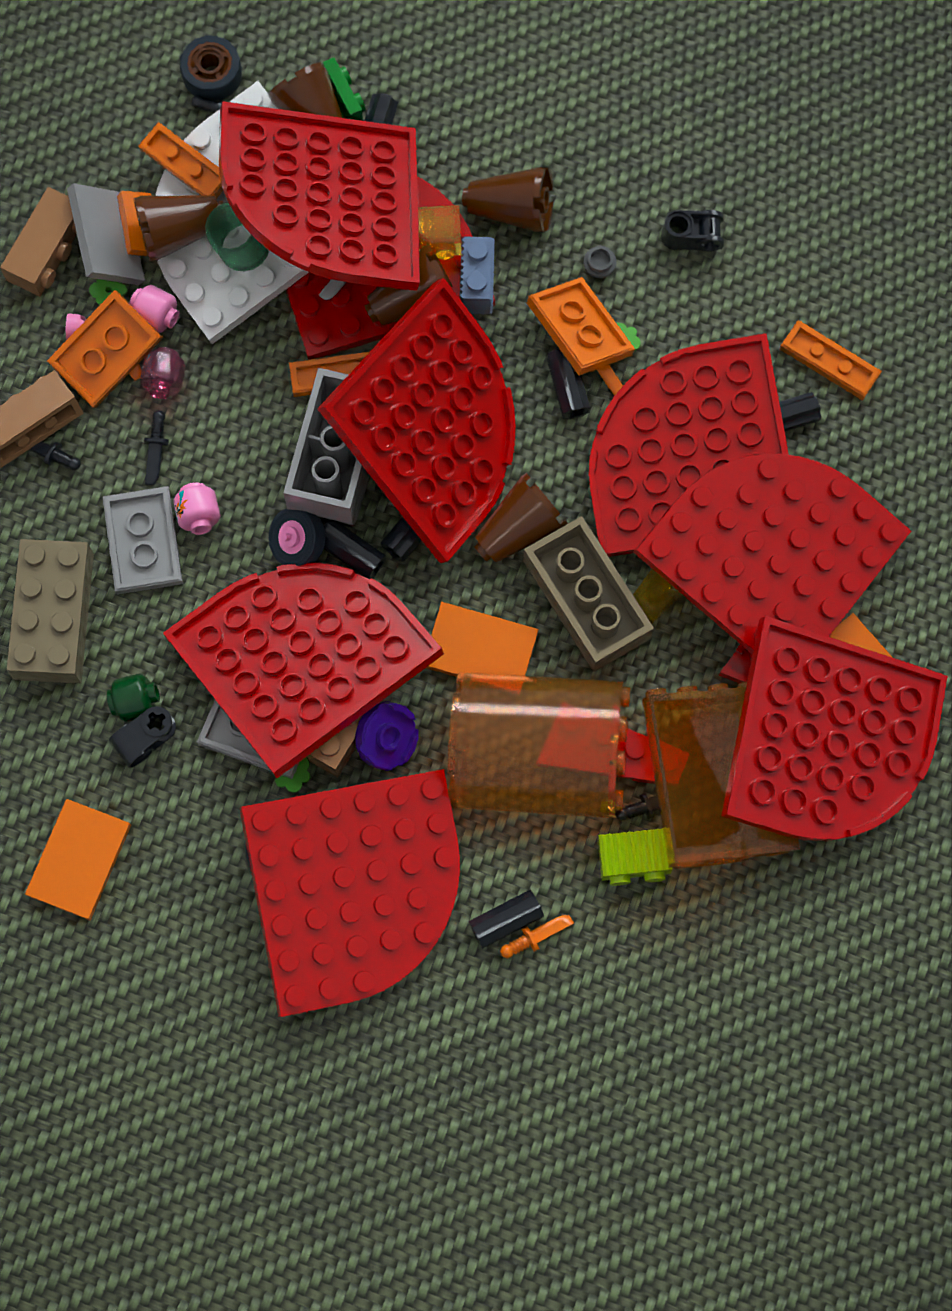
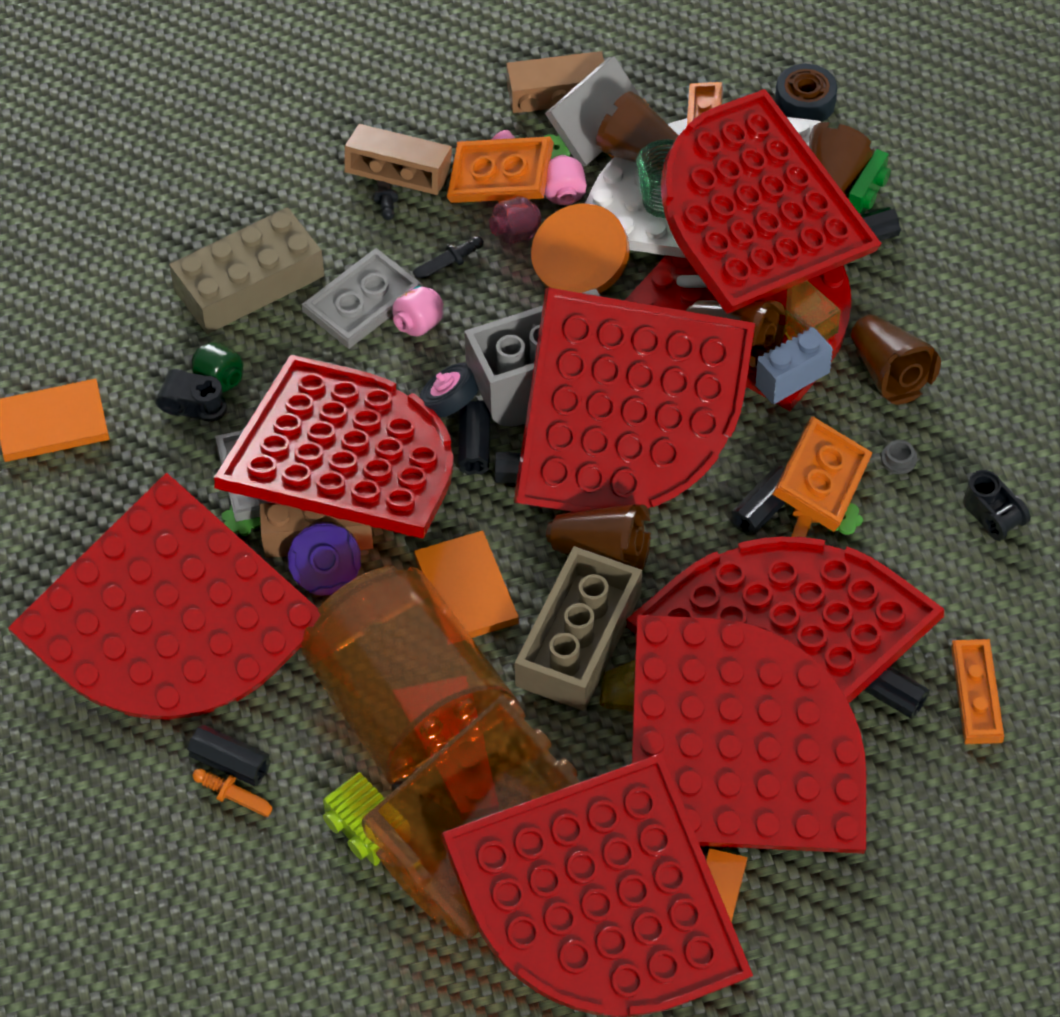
camera: 55 degrees right, 20 degrees down
(235, 347) = (580, 249): none -> orange piece

